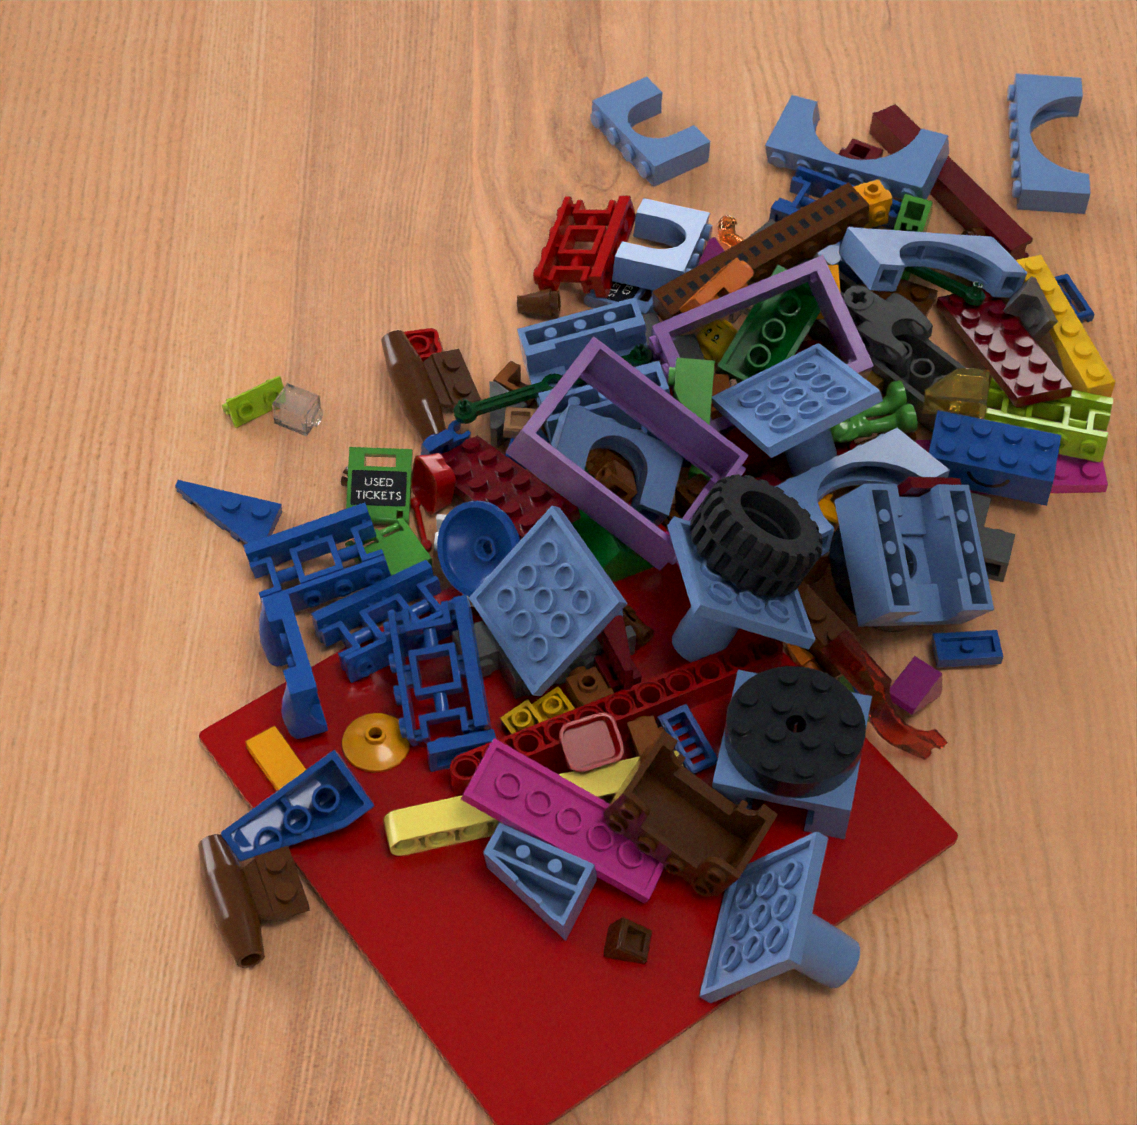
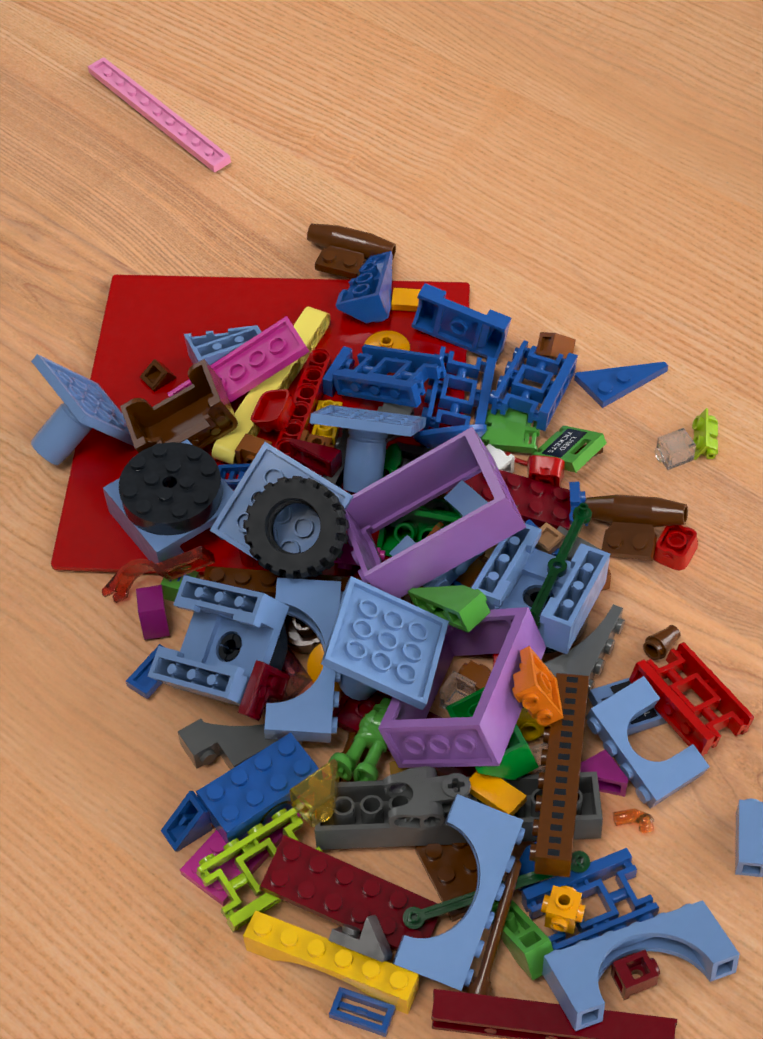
camera: 135 degrees right, 0 degrees up
(235, 588) = (553, 343): none -> dark orange panel
(1068, 507) = (187, 822): none -> blue slope

